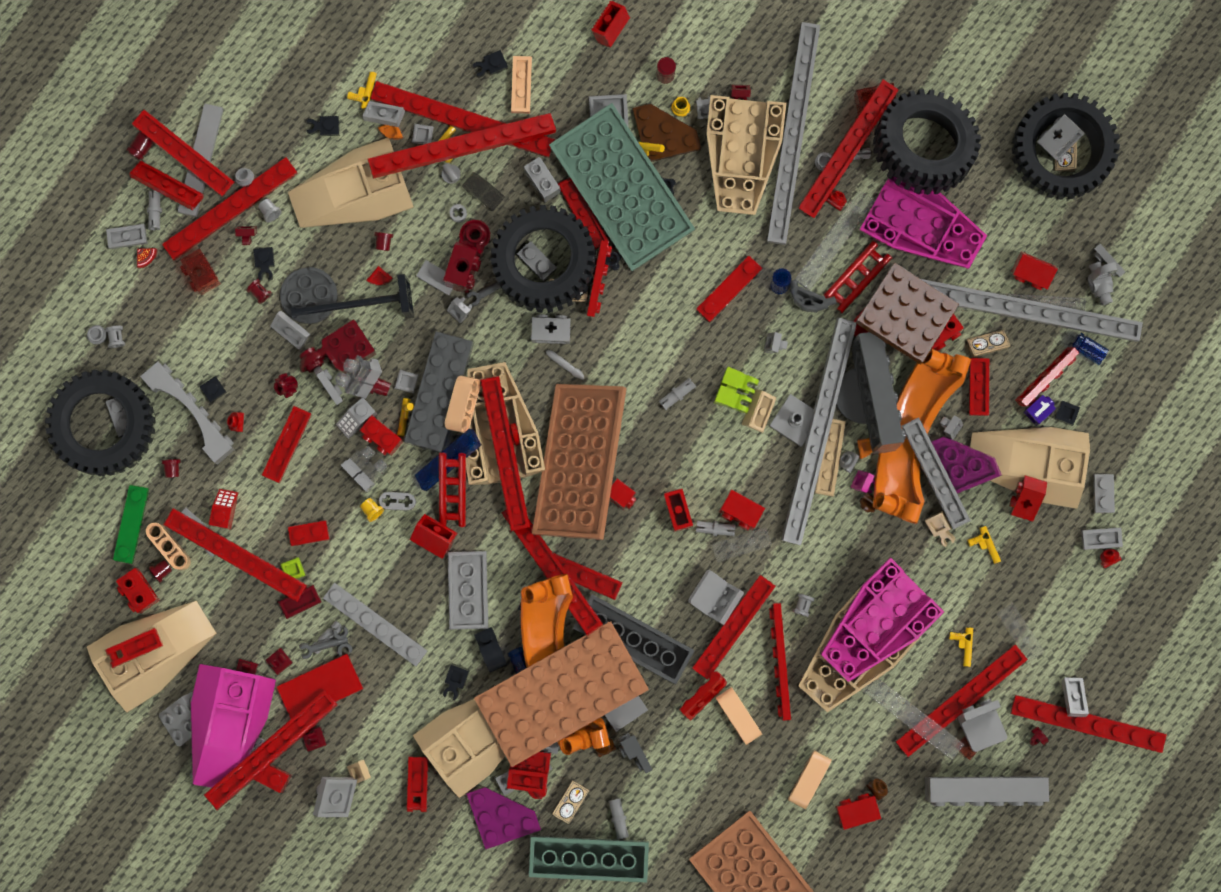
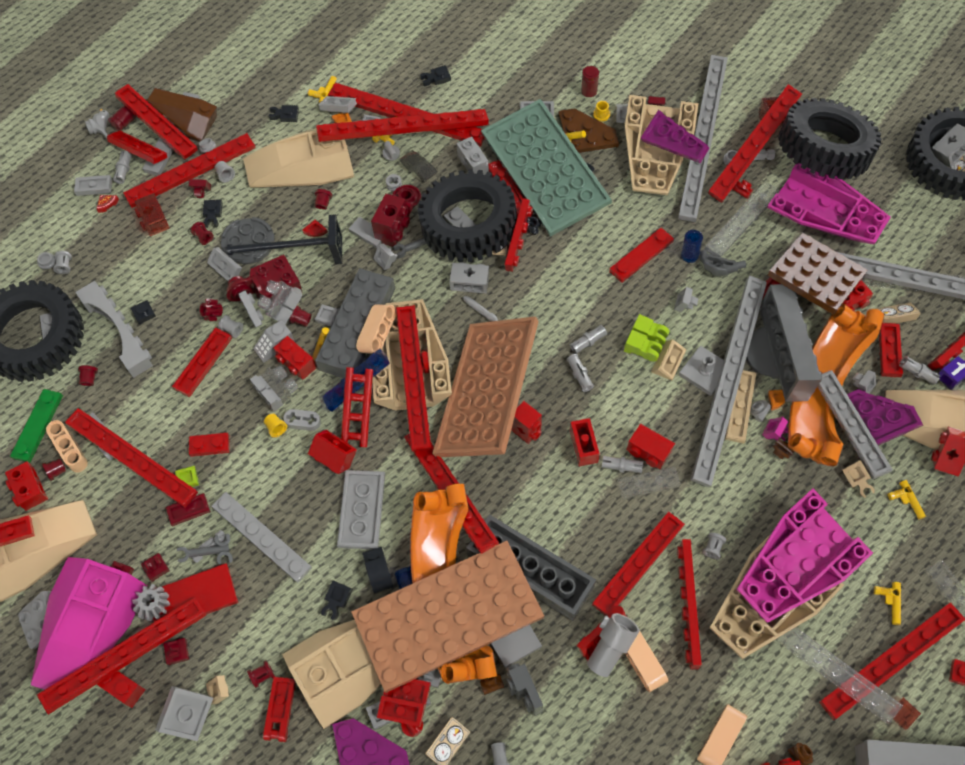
camera: 10 degrees right, 20 degrees down
(115, 153) = (98, 123): none -> light grey animal
(215, 138) = (186, 112): none -> reddish brown wedge
(223, 509) = (128, 417): red slope -> none
(236, 421) = (158, 340): red plate -> none
(289, 704) = (155, 608): none -> light grey gear
(309, 402) = (230, 326): none -> light grey bush
(396, 754) = (261, 674): none -> dark red bush
(521, 84) = (461, 90): light nougat plate -> none
(590, 578) = (490, 505): red tile -> none
(610, 23) = (543, 48): red brick -> none
(664, 420) = (580, 372): none -> light grey pin
(713, 706) = (616, 638): none -> light grey piece
(715, 597) = (619, 529): light grey bracket -> none
(759, 150) = (669, 136): none -> magenta wing
(857, 265) = (765, 241): red bar -> none
(982, 725) = (919, 688): light grey bracket -> none
(1005, 410) = (919, 370): none -> light grey pin
(1033, 270) = (938, 250): red brick -> none

